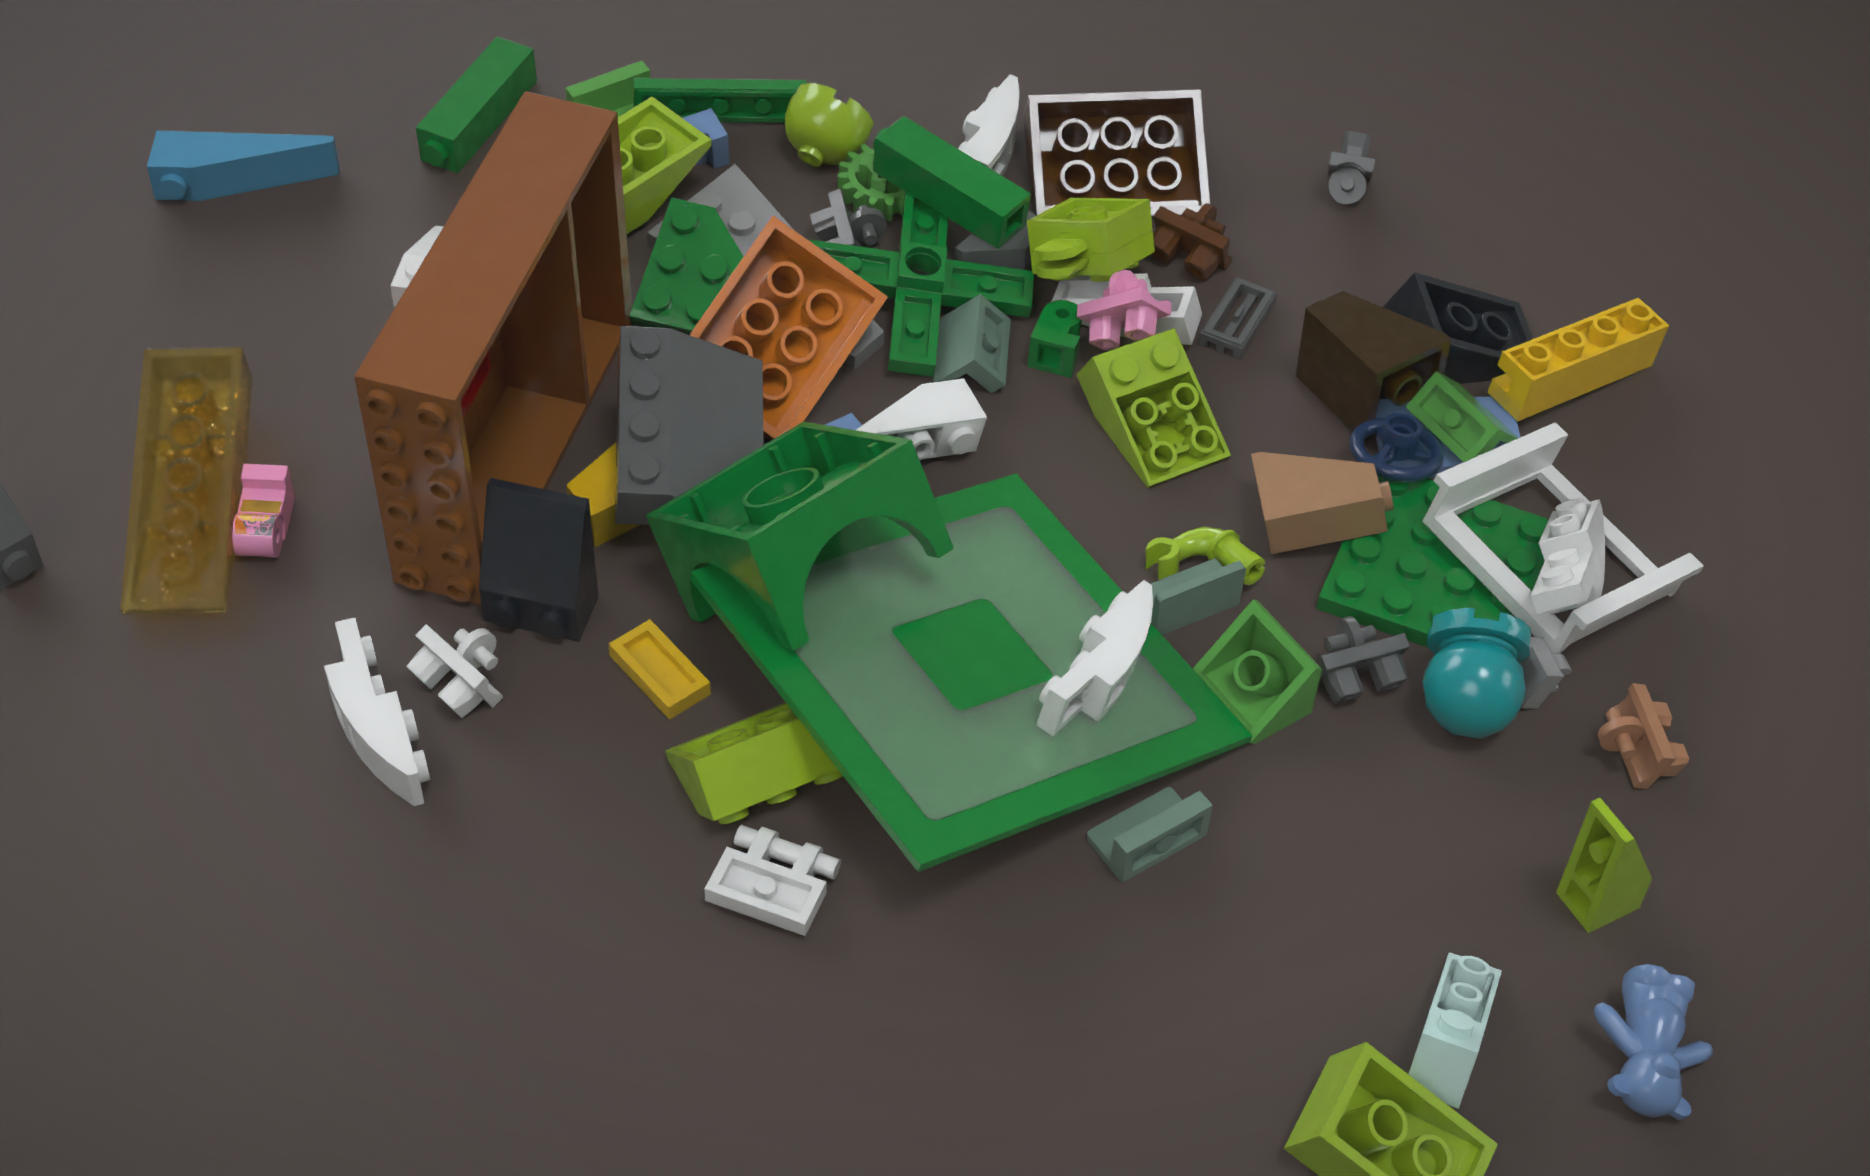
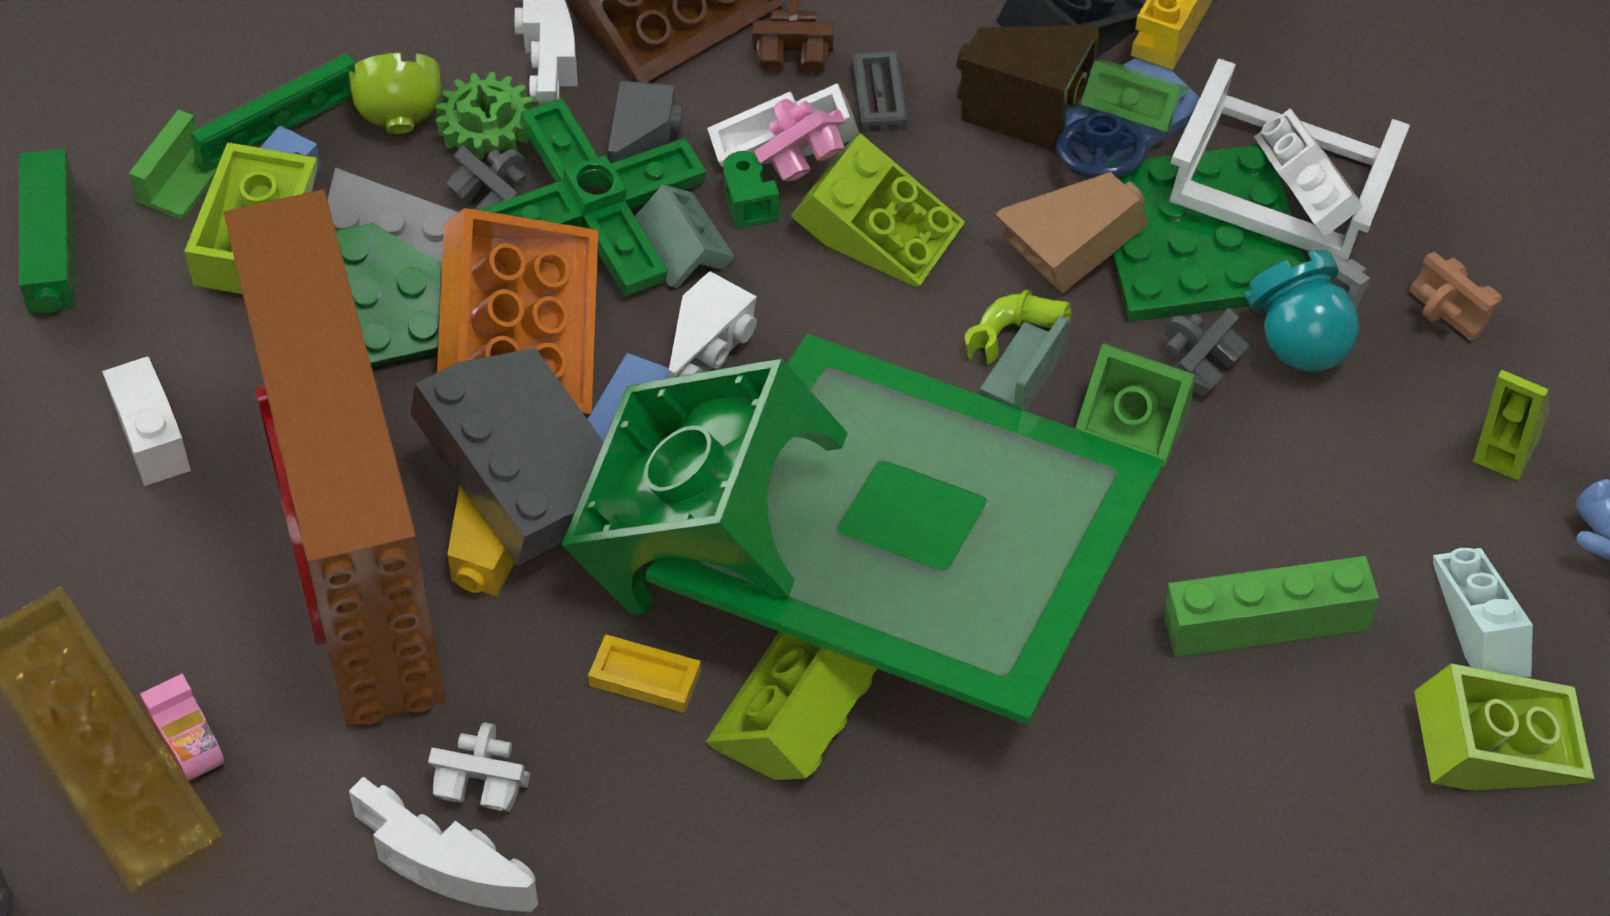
camera: 30 degrees left, 5 degrees up
(537, 560) = (489, 637): black slope -> none
(769, 890) = (886, 810): white plate -> none
(950, 182) = (565, 91): green brick -> none
(1090, 238) = (720, 83): lime brick -> none
(1104, 662) = (1022, 458): white slope -> none
(1150, 831) = (1140, 586): sand green panel -> none
(1248, 907) = (1270, 606): none -> bright green brick

